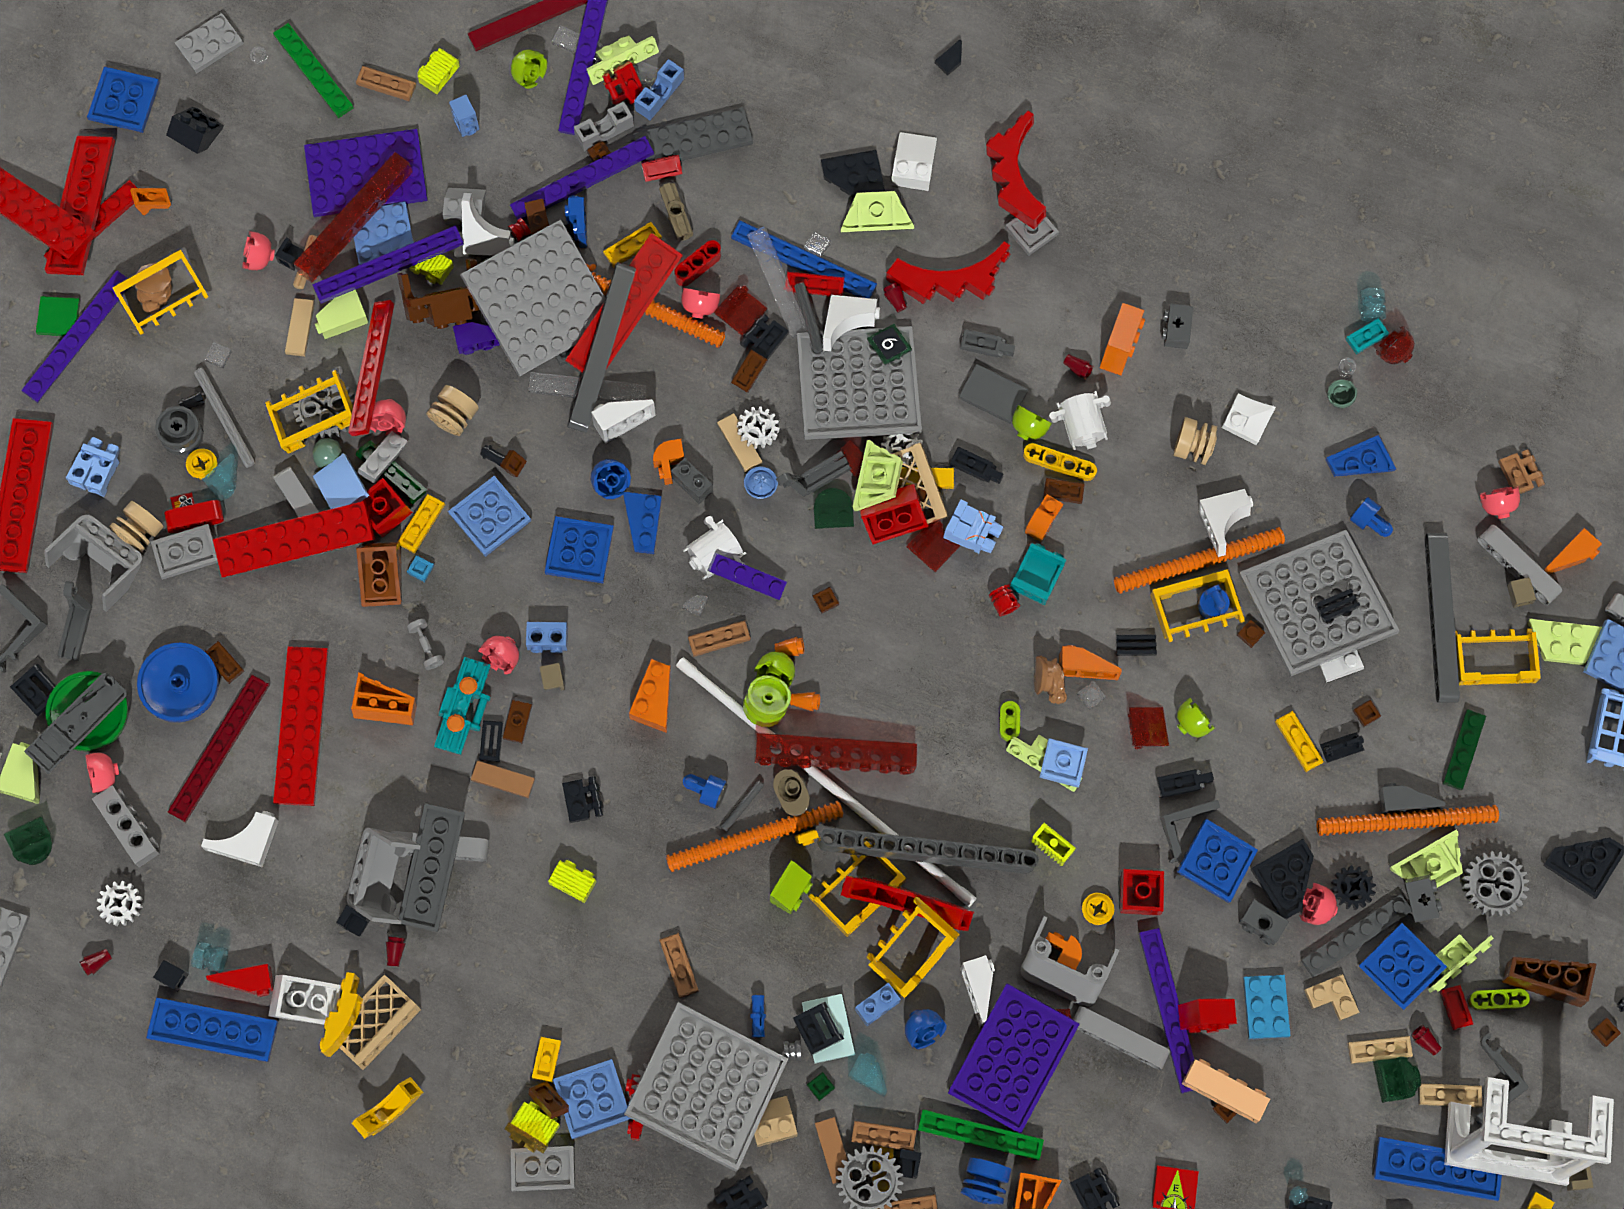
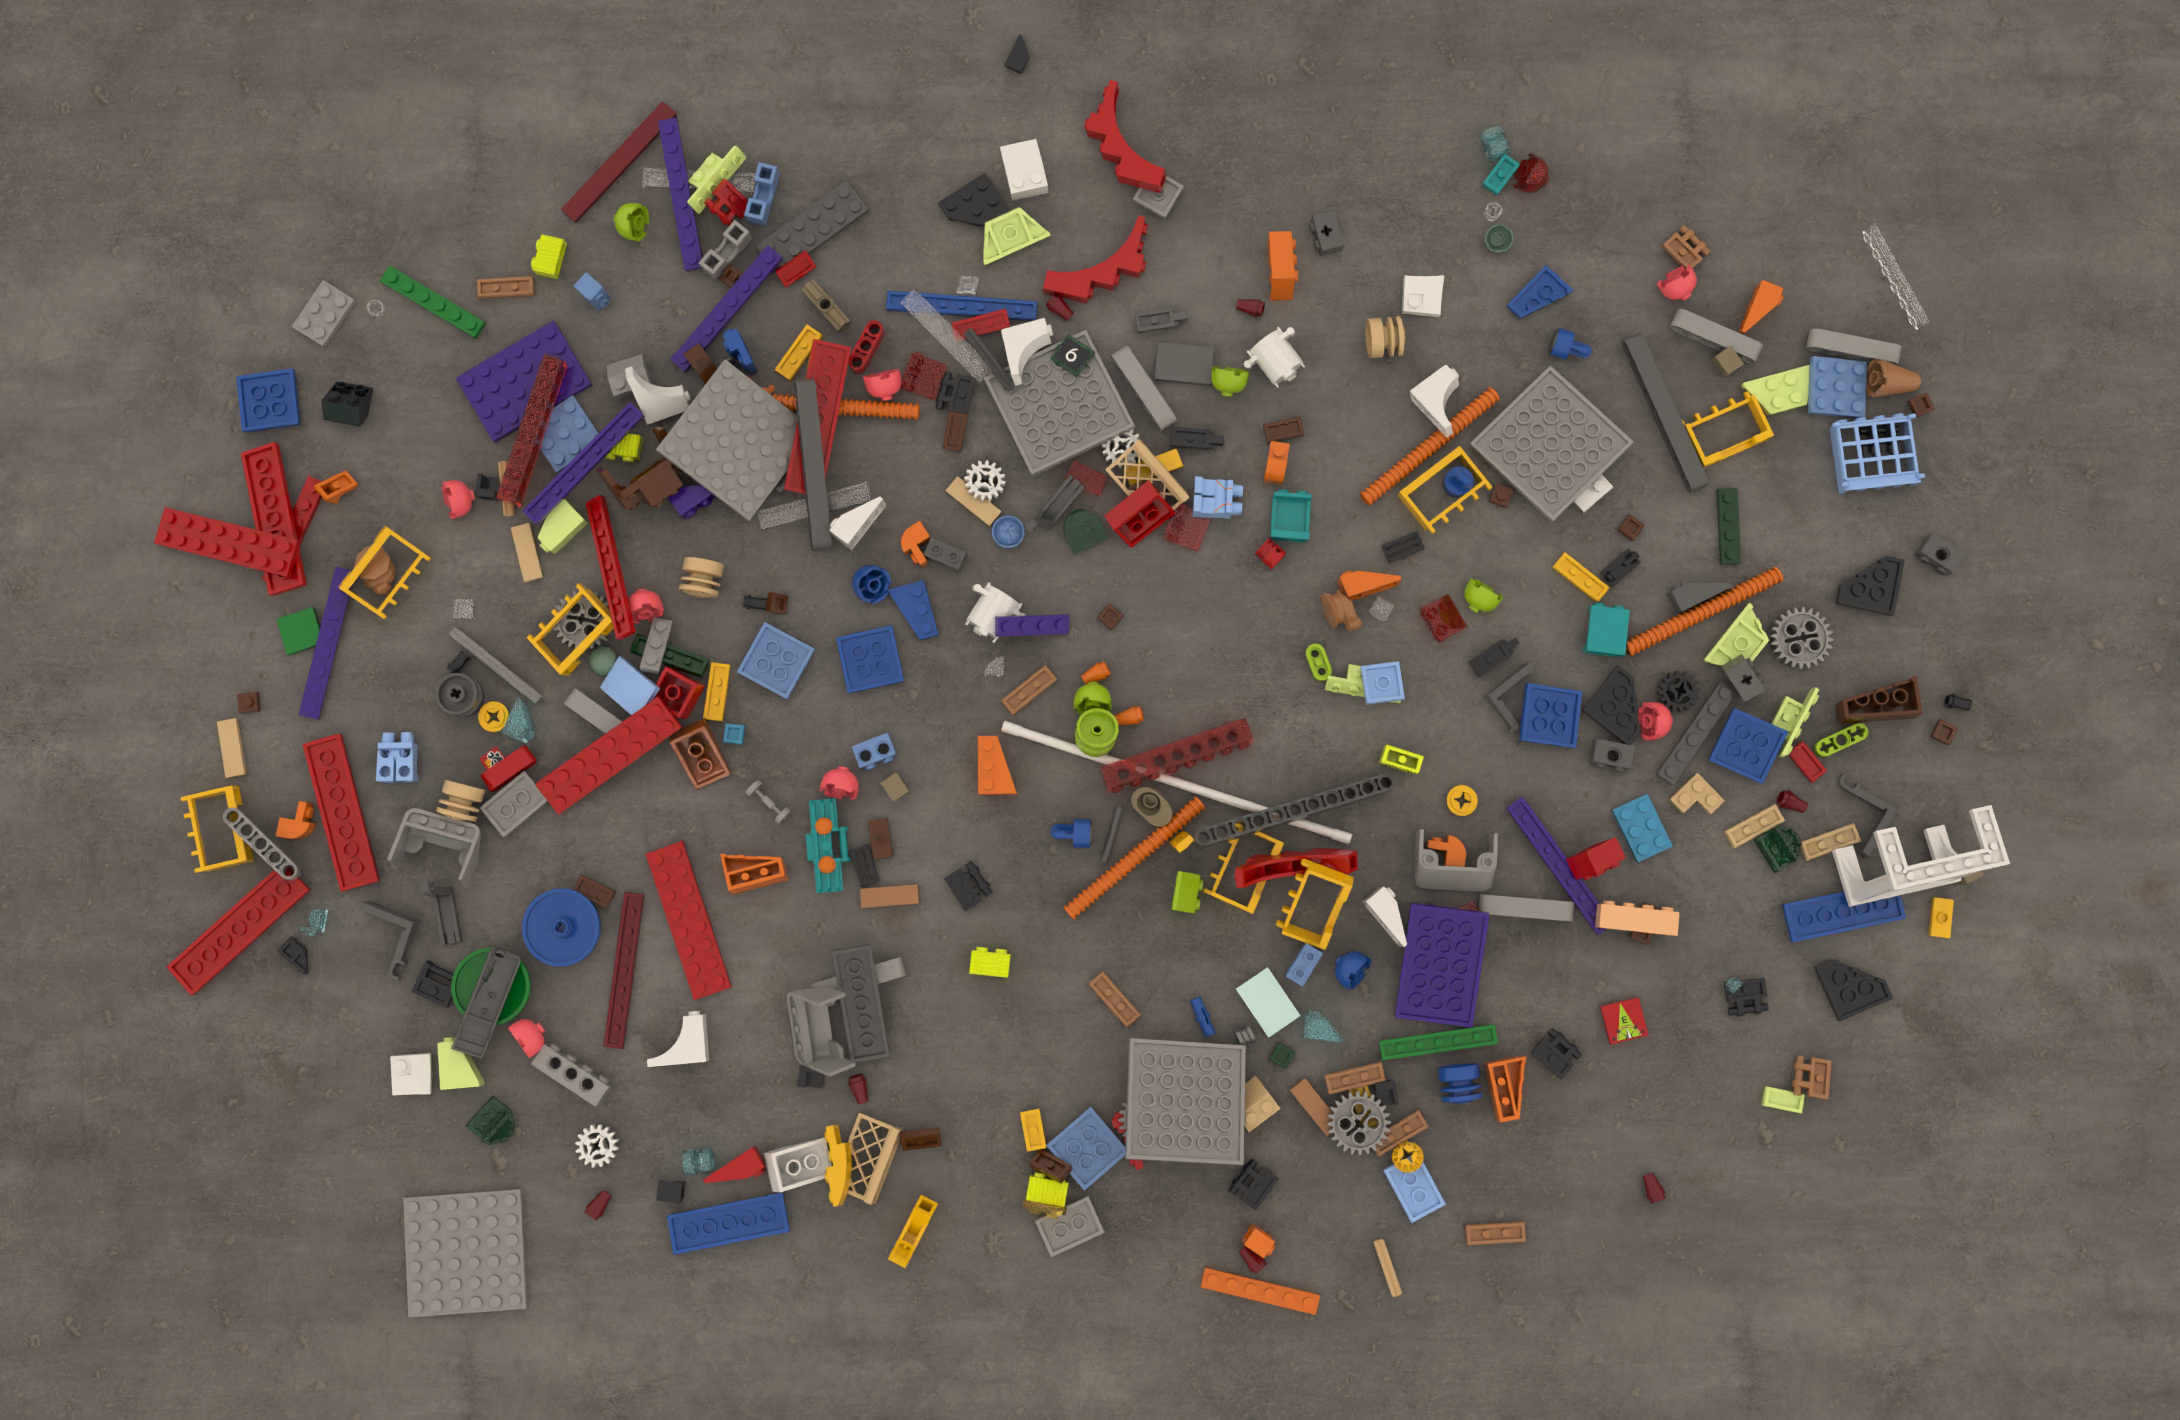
camera: 15 degrees left, 10 degrees up
(433, 1023) = (921, 1138): none -> reddish brown plate
(519, 229) = (689, 380): red wheel -> none
(812, 1032) = (1256, 1012): black plate -> none
(877, 477) = (1113, 486): yellowish green wing -> none
(945, 401) = (1143, 388): none -> light grey beam
(1059, 464) = (1269, 406): yellow beam -> none
(1142, 892) = (1495, 771): red brick -> none
(1304, 801) = (1607, 630): none -> teal panel
(1352, 598) = (1580, 429): black tile -> none

